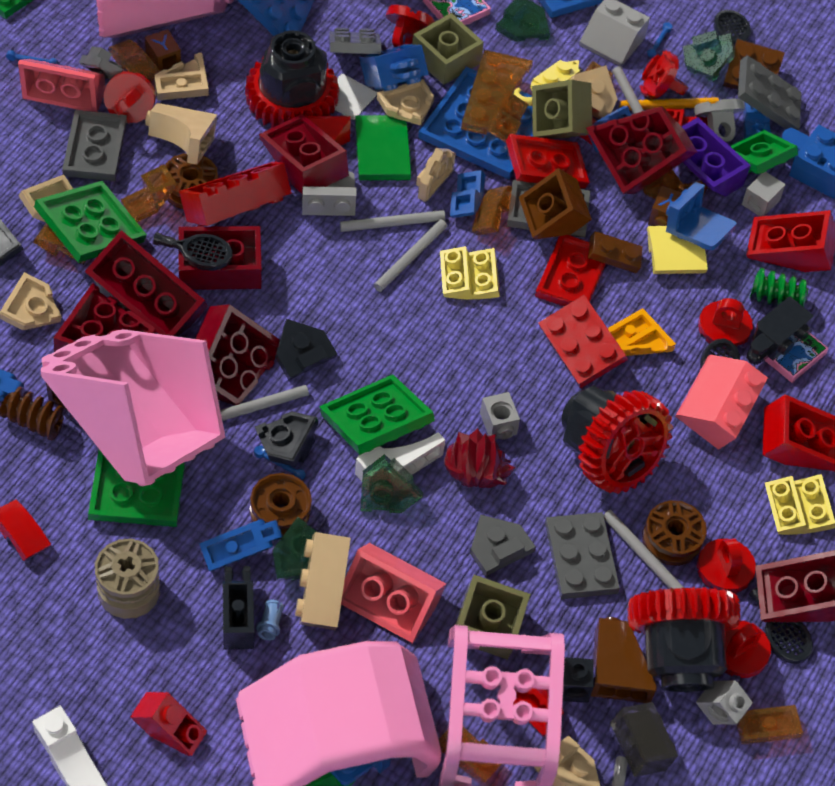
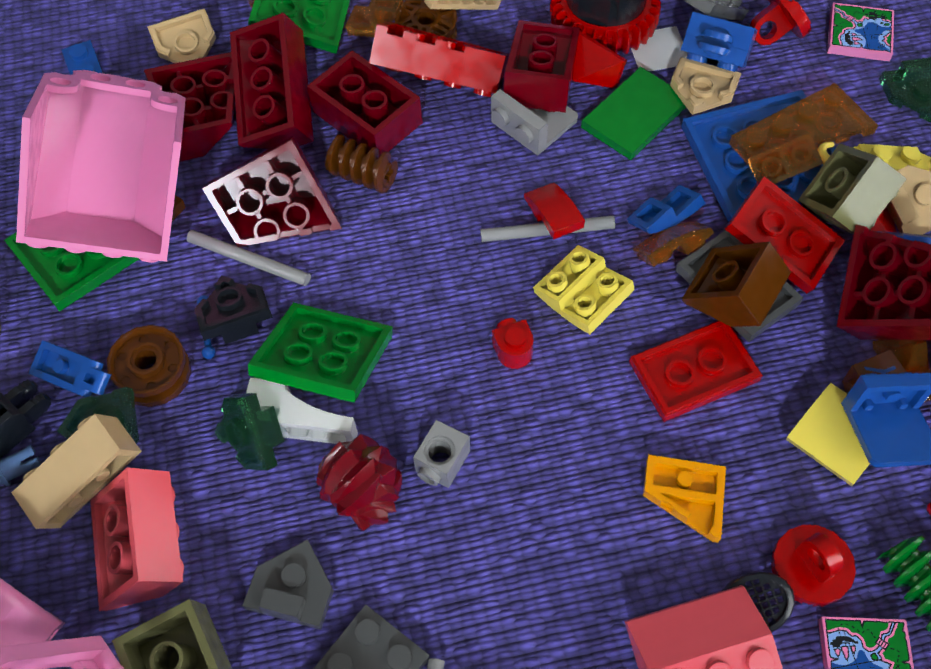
camera: 55 degrees right, 5 degrees up
(185, 244) = (340, 68): black piece -> none
(260, 295) = (362, 168): none -> reddish brown piece
(302, 348) = (342, 238): black plate -> none
(390, 221) = (568, 185): light grey bar -> none
(406, 237) = (555, 210): none -> red slope
(436, 171) = (655, 165): tan plate -> none
(449, 48) = (798, 58): olive brick -> none
(468, 331) = (513, 343): none -> red plate
(582, 341) = (618, 449): red plate -> none
(615, 252) = (762, 382): reddish brown plate -> none
(616, 436) = (514, 587): red piece -> none
(780, 331) = (866, 631): black hinge -> none

